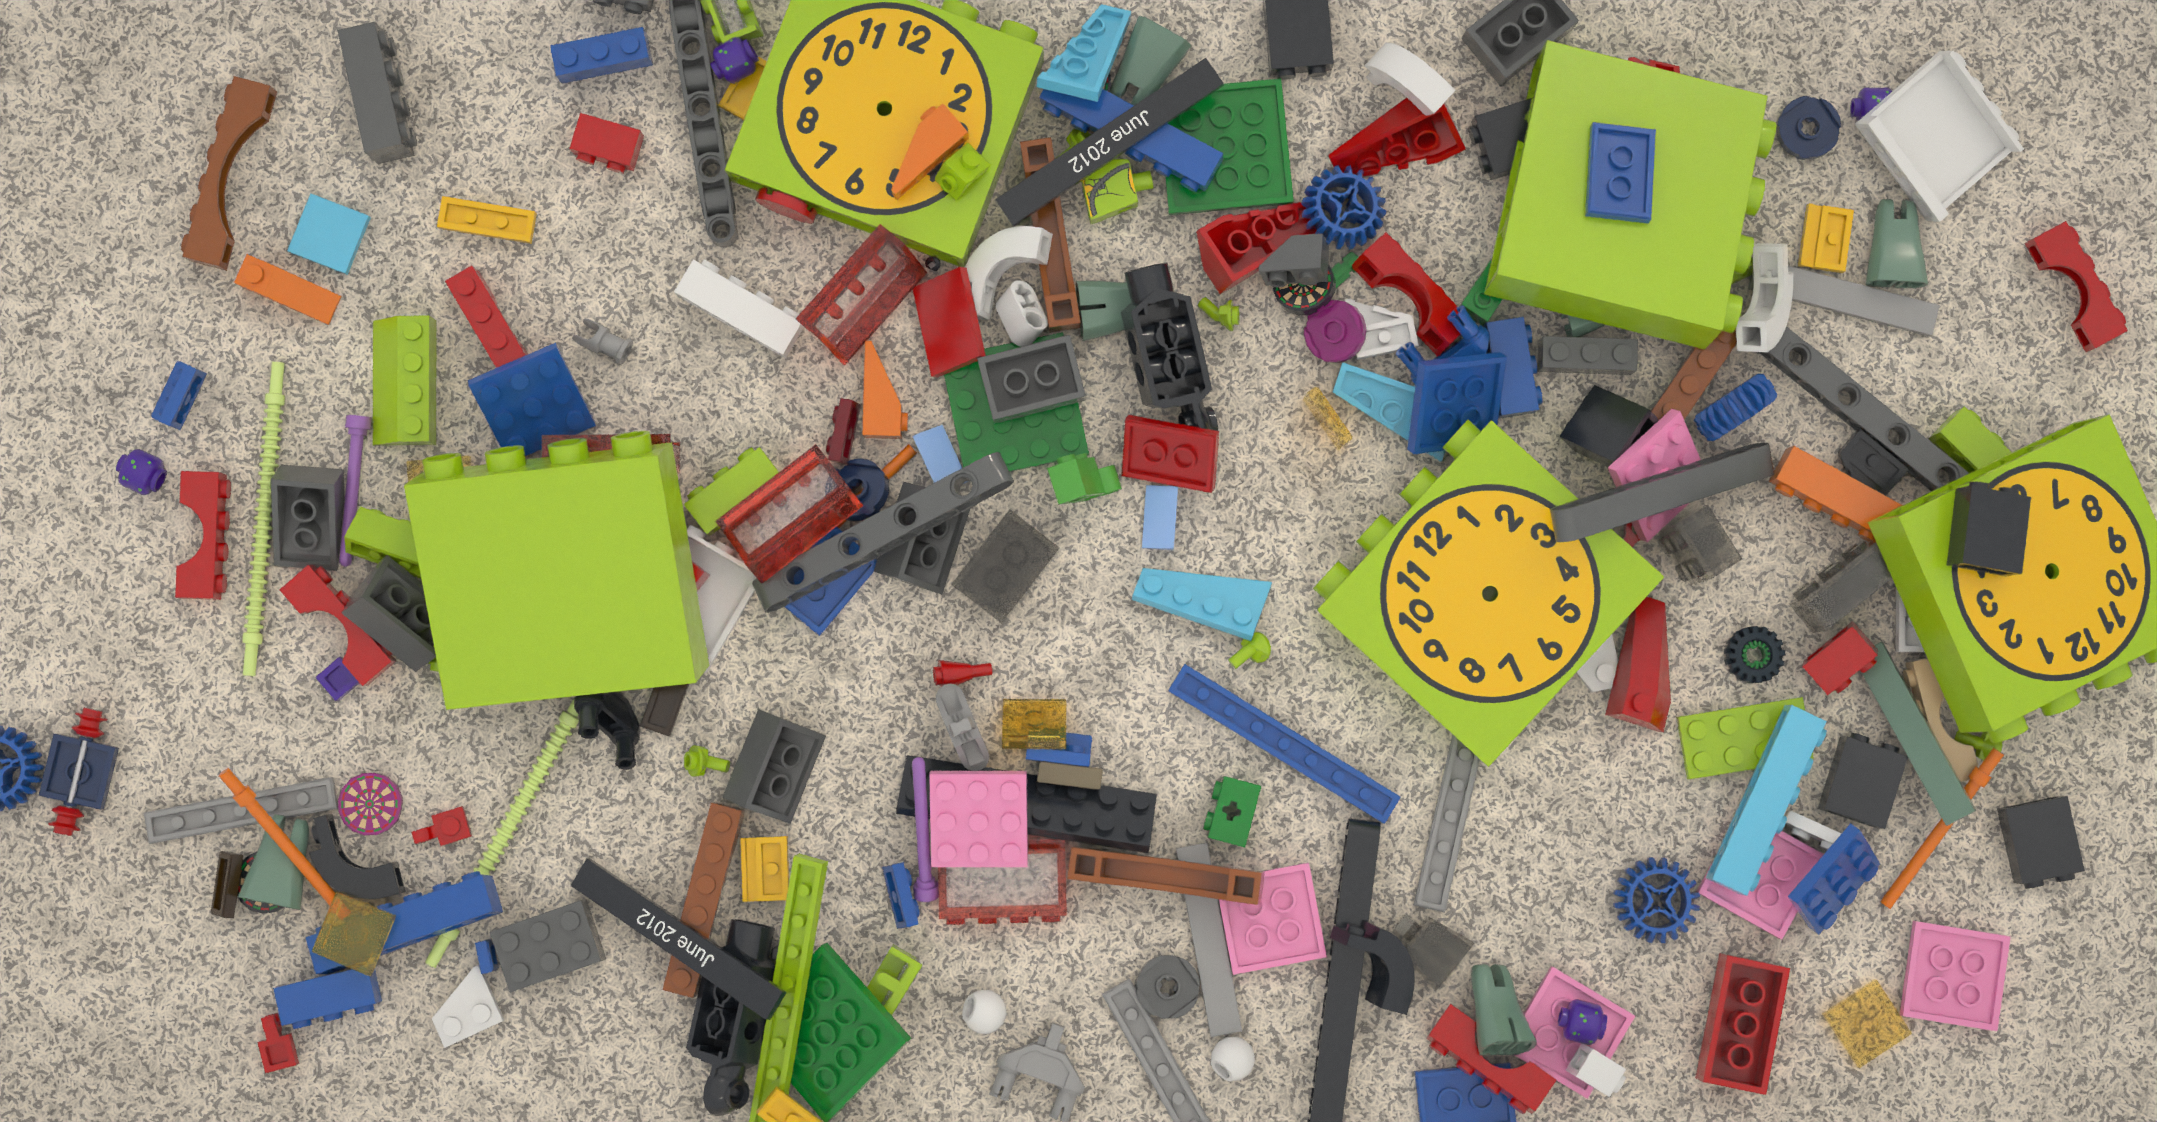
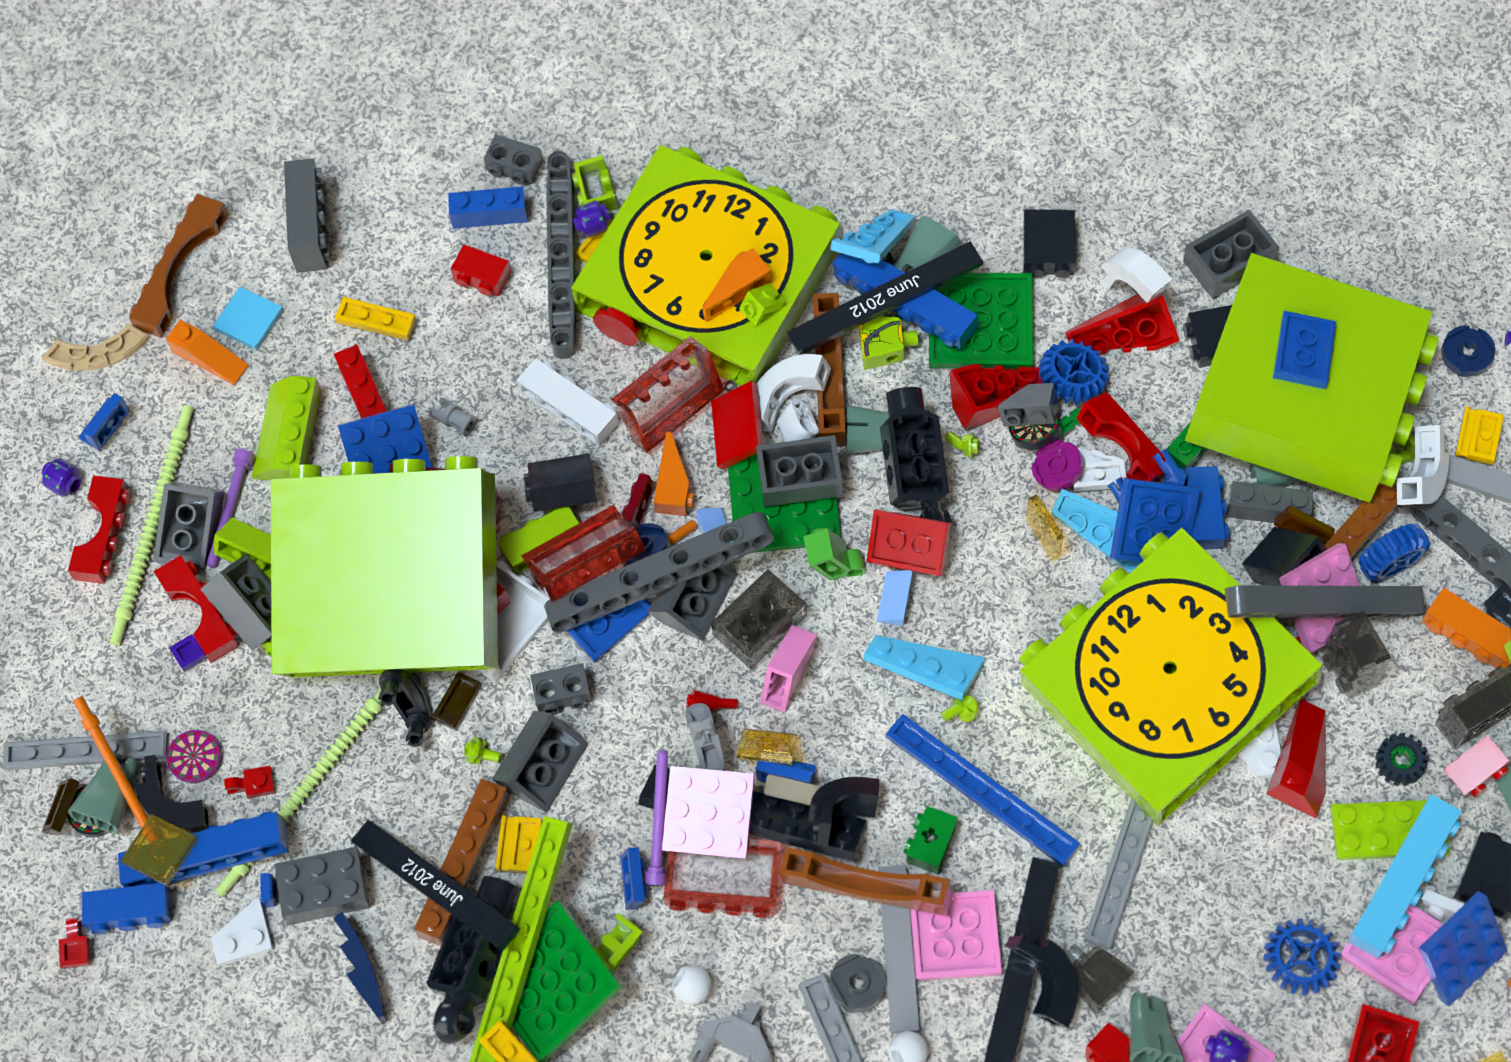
camera: 15 degrees right, 20 degrees down
(150, 304) = (95, 357): none -> tan tile
(615, 1045) = (363, 975): none -> dark blue slope
(747, 420) = (560, 482): none -> black brick
(783, 668) = (559, 681): none -> dark grey brick
(1046, 621) = (787, 668): none -> bright pink slope
(1129, 775) = (840, 799): none -> black arch
(1629, 383) = (1298, 521): none -> reddish brown tile

